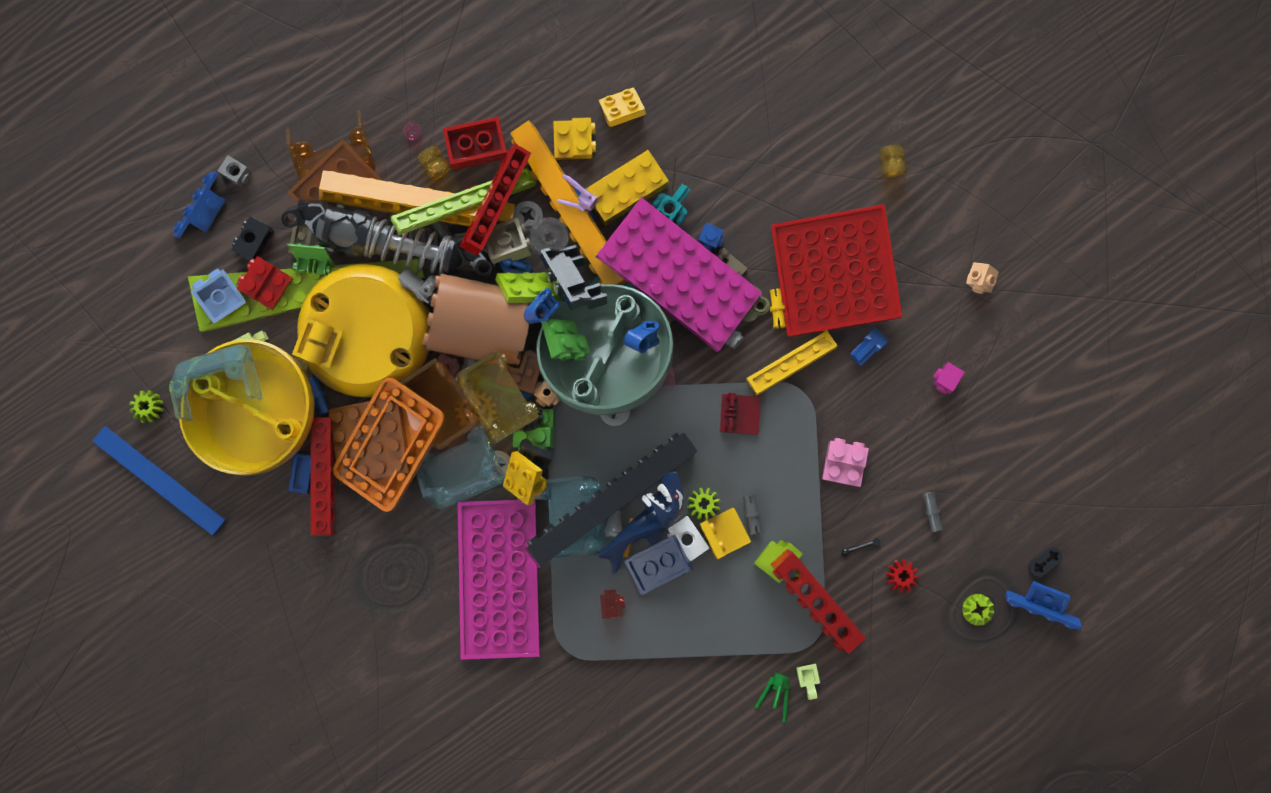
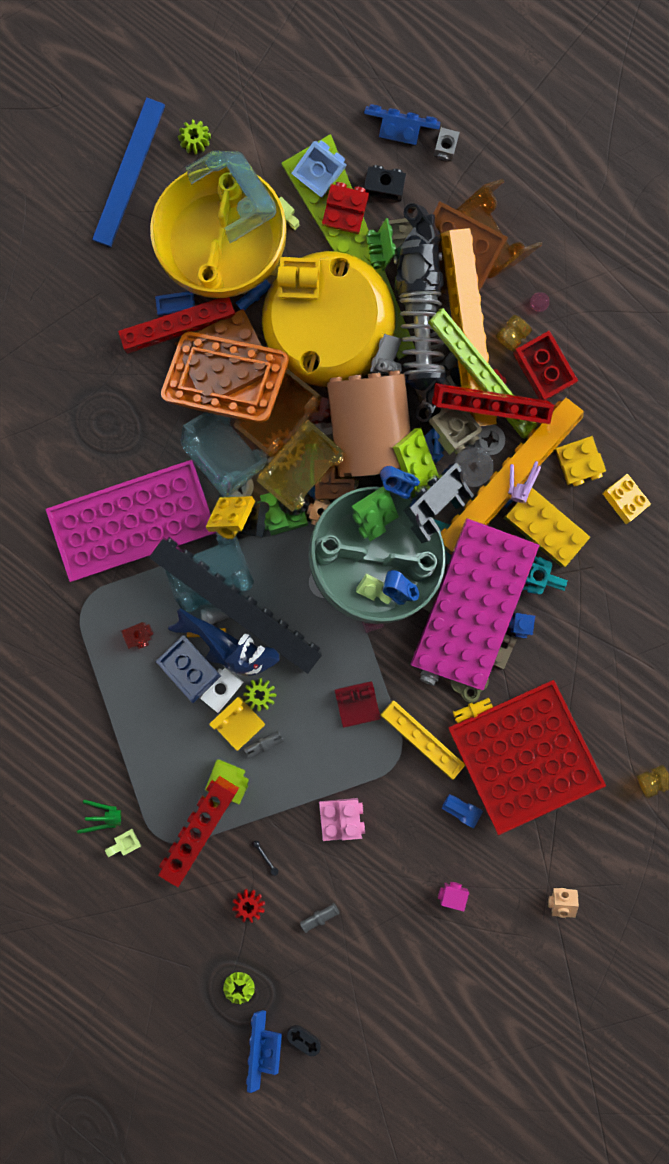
camera: 75 degrees right, 5 degrees up
(634, 363) = (372, 587): none -> yellowish green plate

